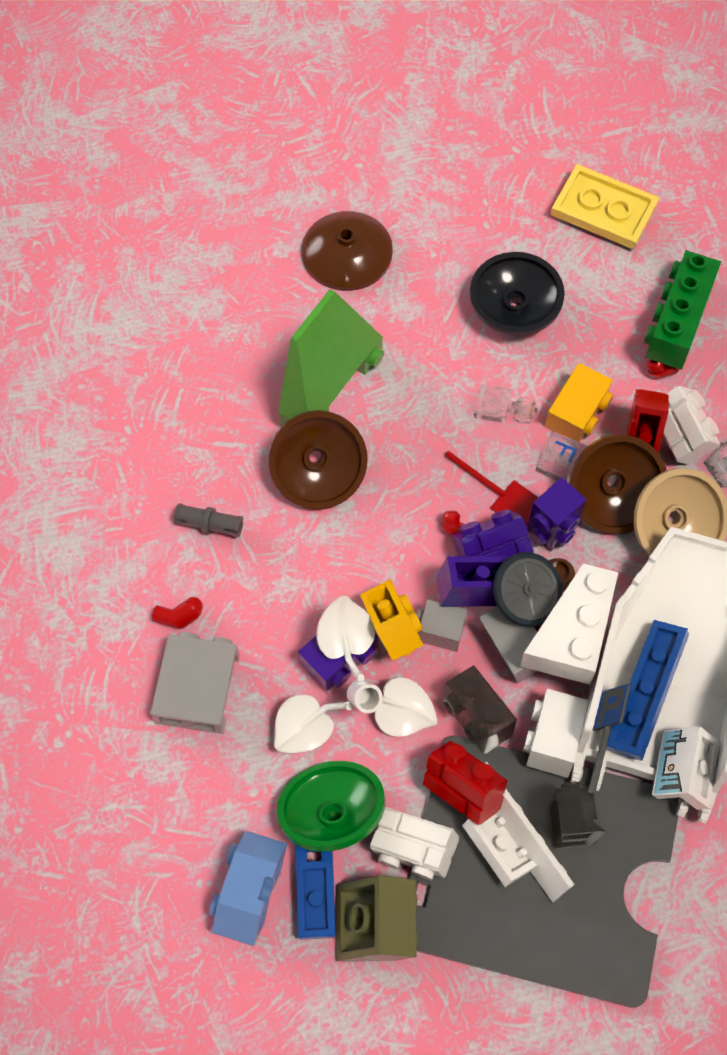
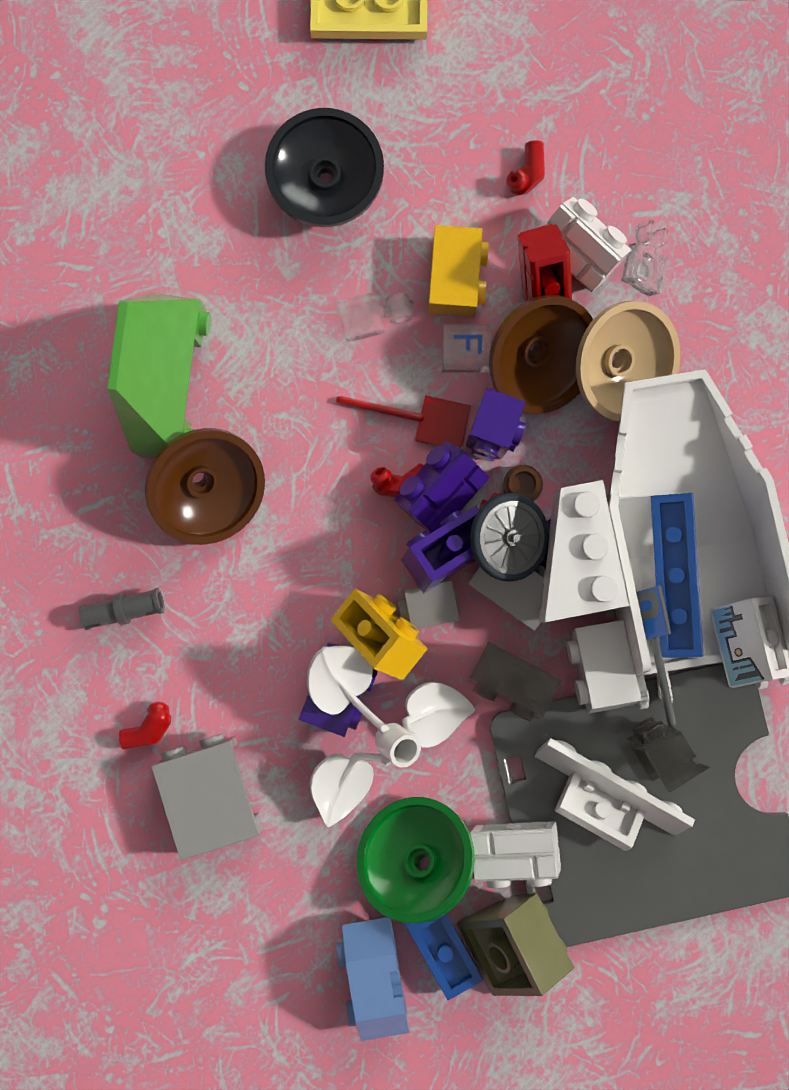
camera: 30 degrees left, 20 degrees up
(351, 262) = (112, 216): reddish brown dish -> none
(465, 782) = (539, 772): red brick -> none
(683, 309) = (519, 97): green brick -> none

